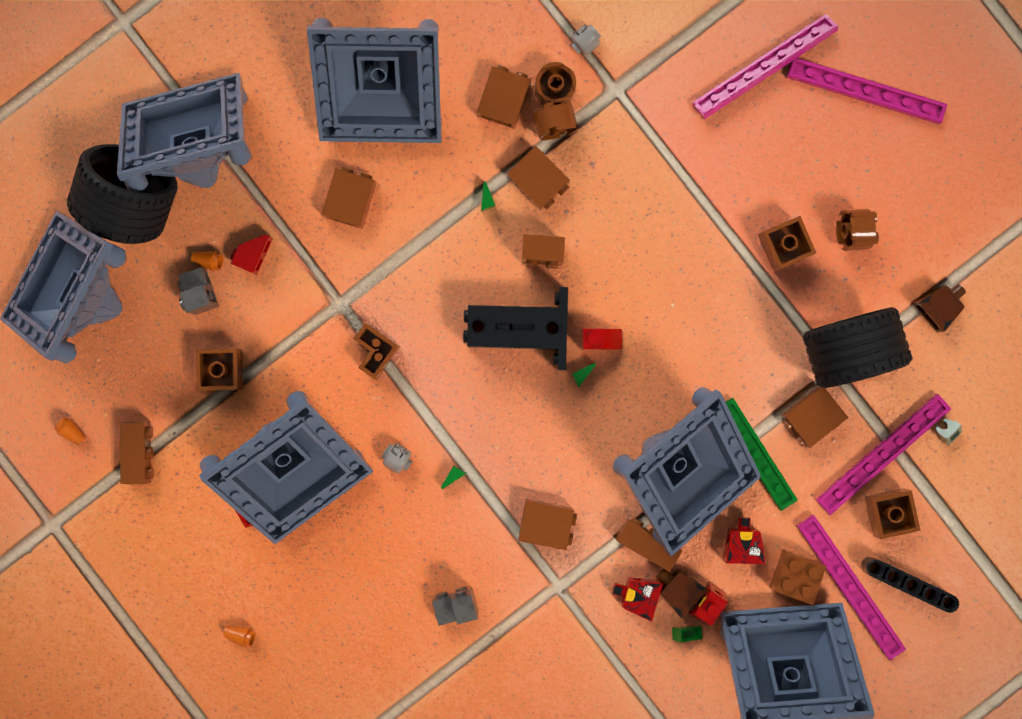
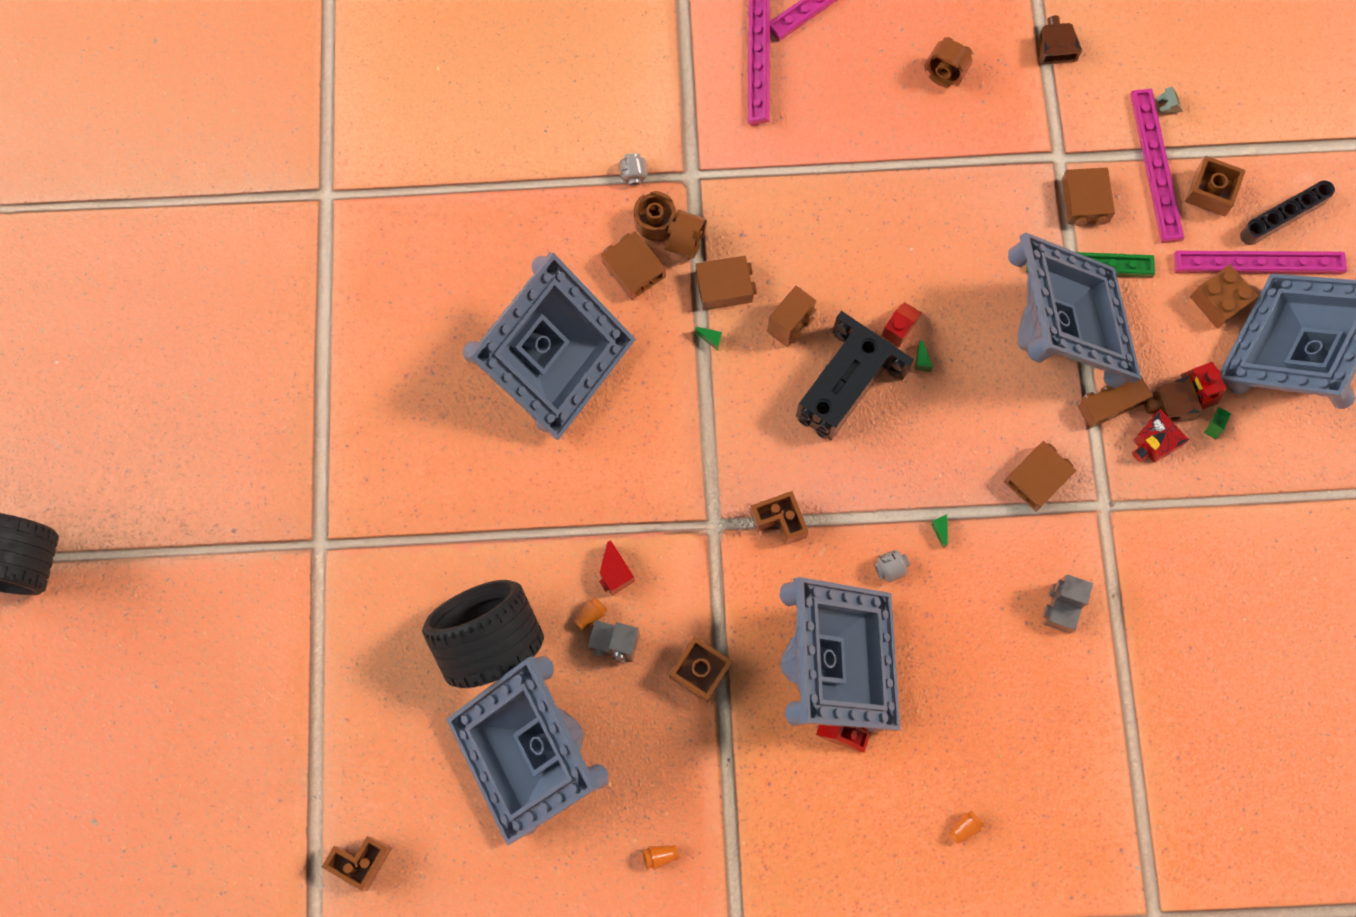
camera: 55 degrees left, 15 degrees down
(136, 453) = (724, 804): dark orange brick -> none
(183, 133) = (470, 538): sand blue piece -> none
(349, 197) = (626, 450): dark orange brick -> none
(744, 544) = (1166, 322): torso -> none
(787, 243) = (923, 122): dark orange brick -> none
(857, 348) = (1054, 116): black tyre -> none

